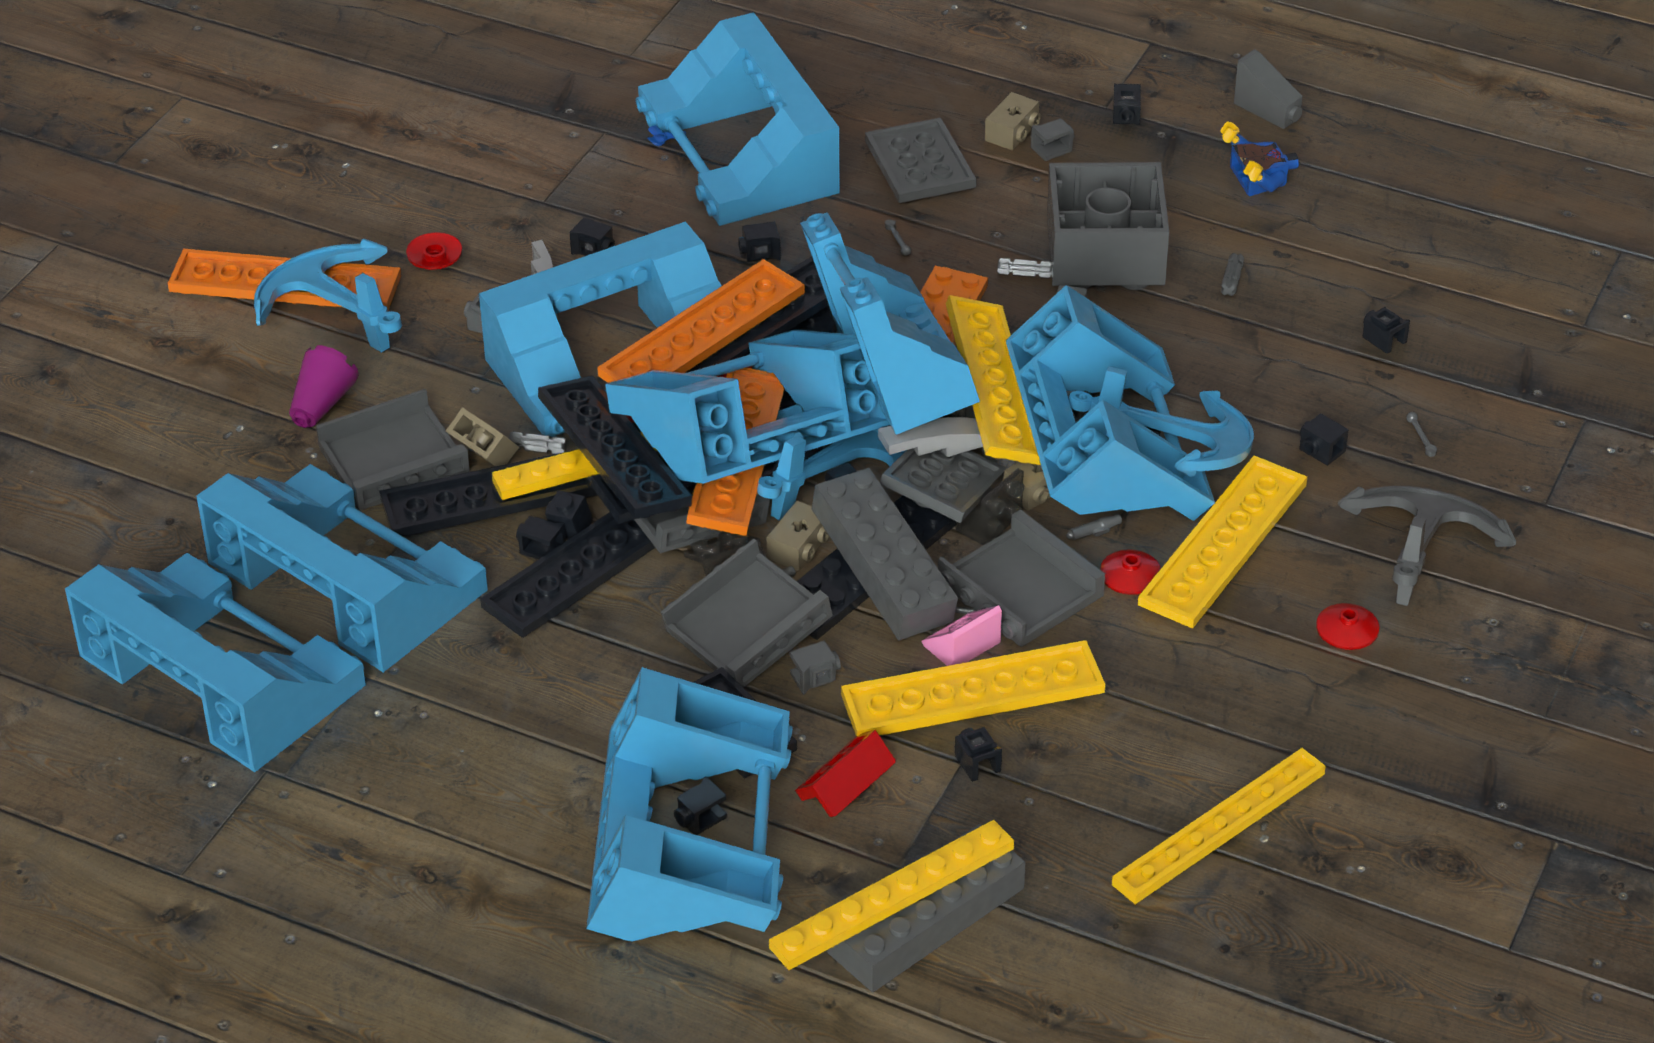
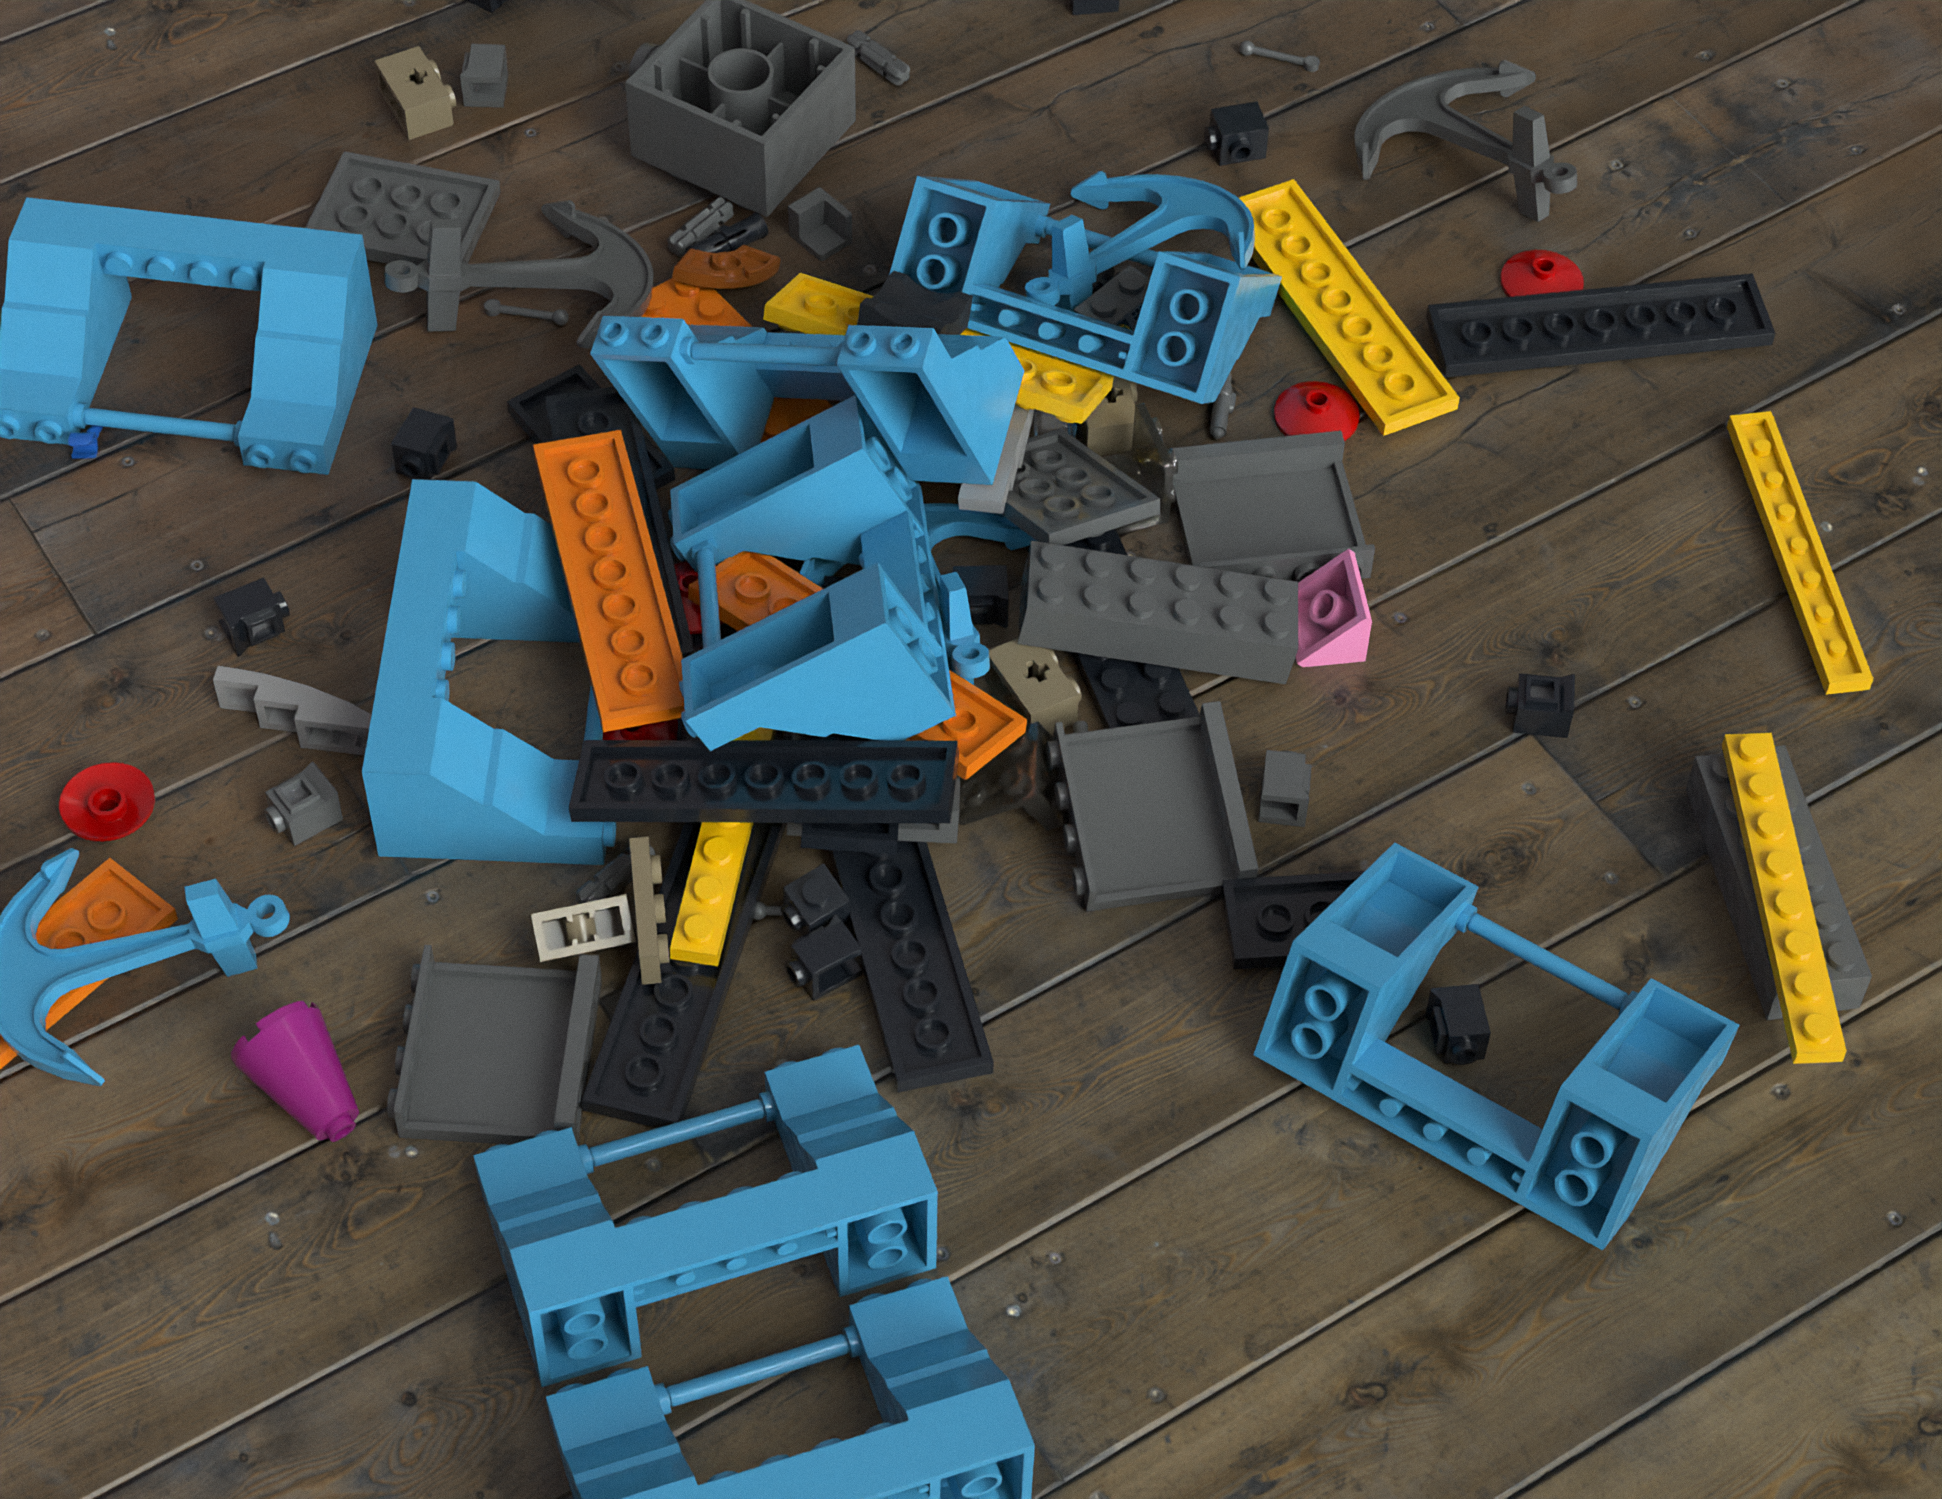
camera: 60 degrees left, 10 degrees up
(507, 451) = (649, 910): none -> dark tan plate
(848, 773) = (1484, 847): red panel -> none
(941, 247) = (615, 270): none -> dark grey piece
(973, 689) = (1426, 660): yellow plate -> none
(989, 348) = (909, 305): none -> black brick
(995, 288) = (726, 269): none -> dark orange tile
(1022, 281) = (748, 230): none -> black pin
(1329, 663) = (1599, 325): none -> black plate

